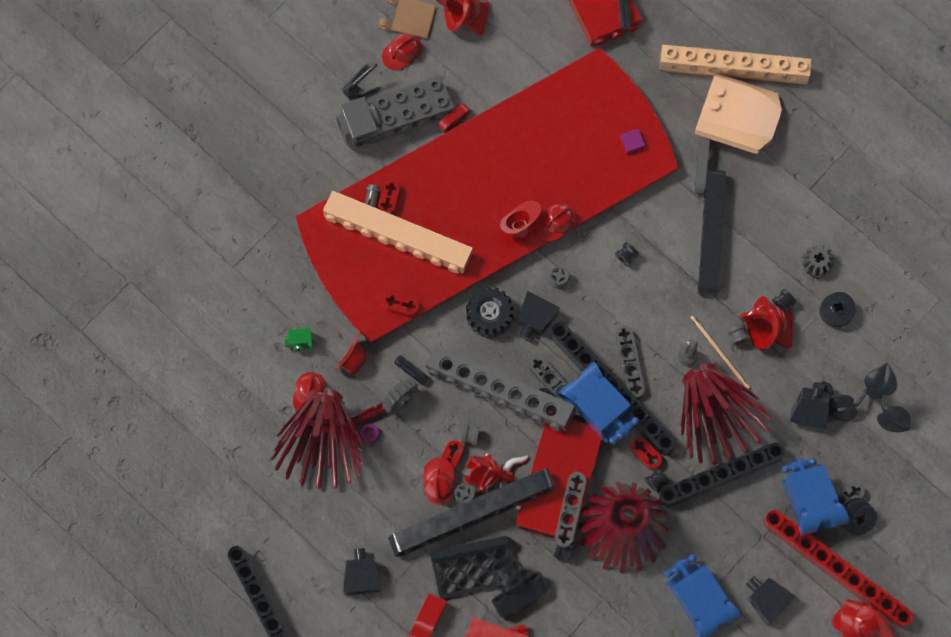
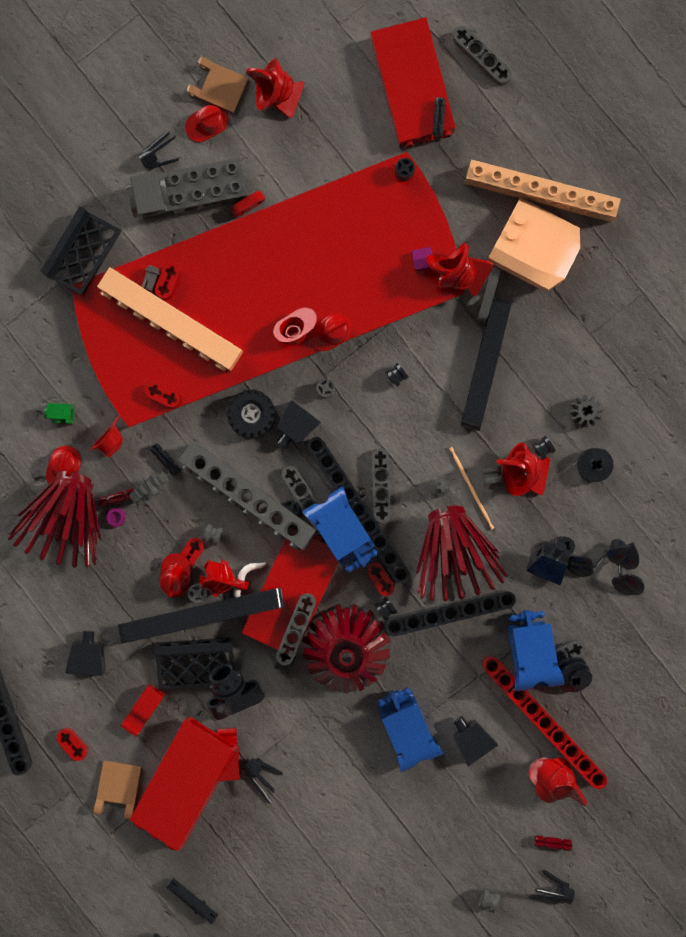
camera: 10 degrees right, 15 degrees up
(284, 182) = (65, 247): none -> black fence
(600, 58) = (404, 165): none -> black wheel
(672, 144) = (460, 270): none -> red helmet

